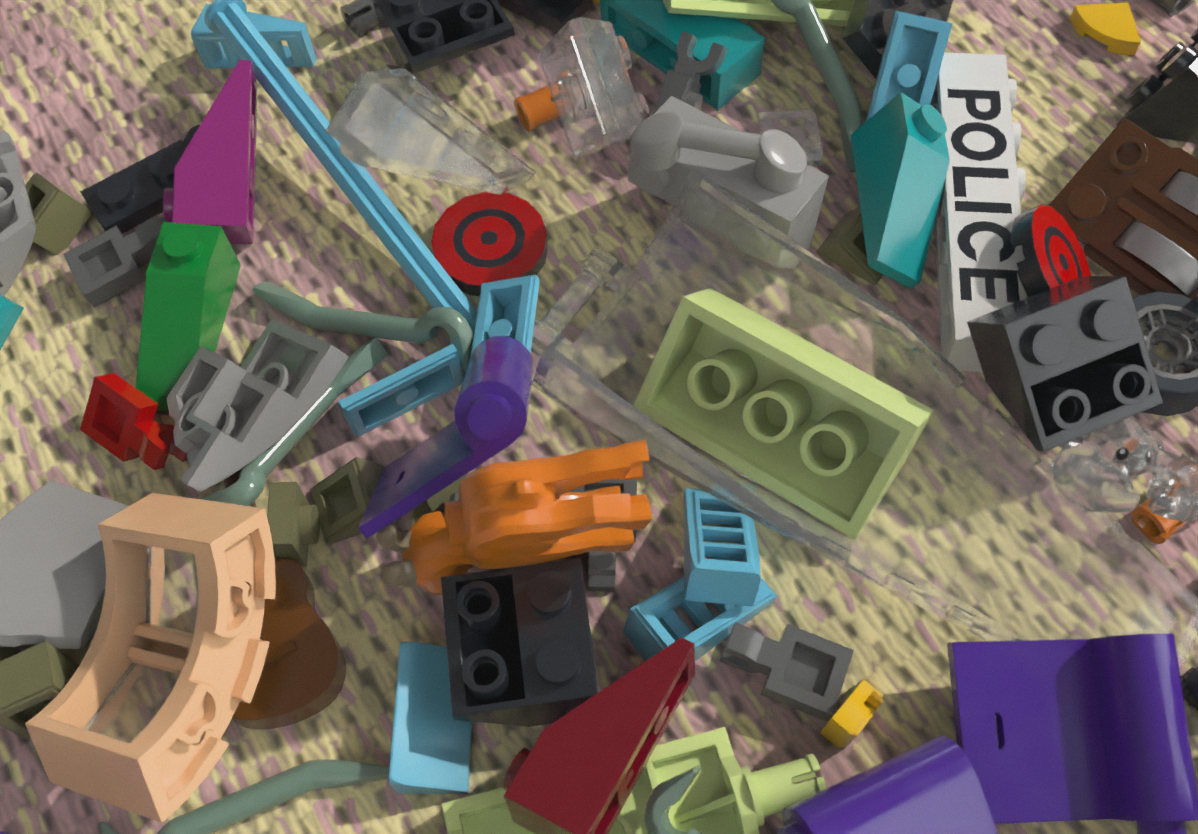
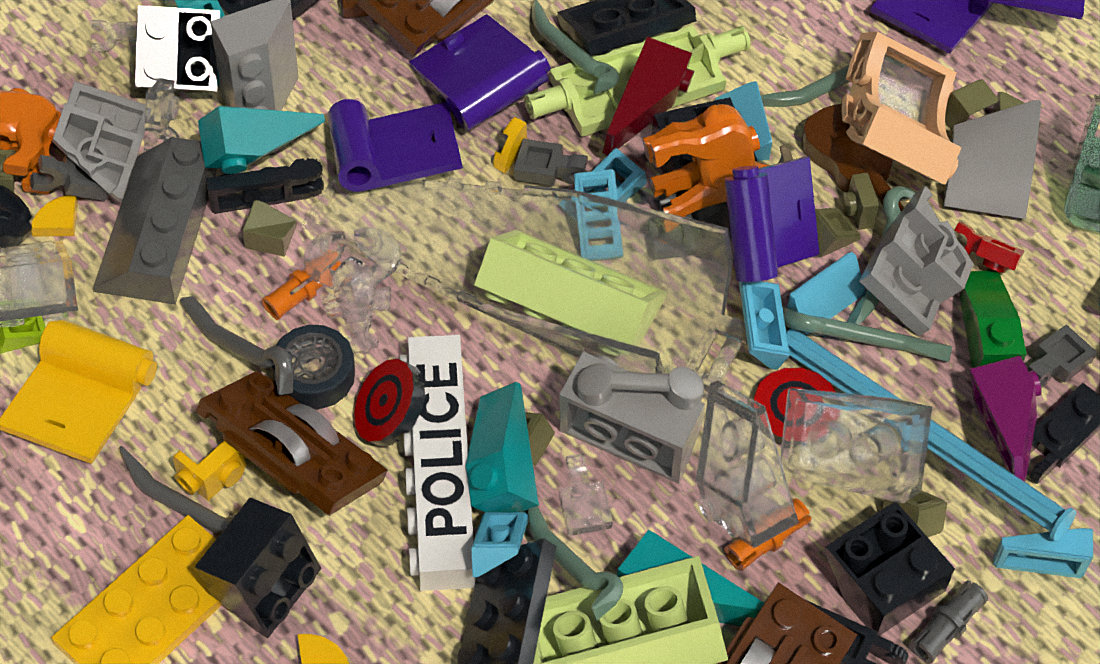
camera: 165 degrees right, 5 degrees down
(684, 79) = (674, 517): dark grey plate -> none
(1067, 359) = (394, 310): black slope -> none

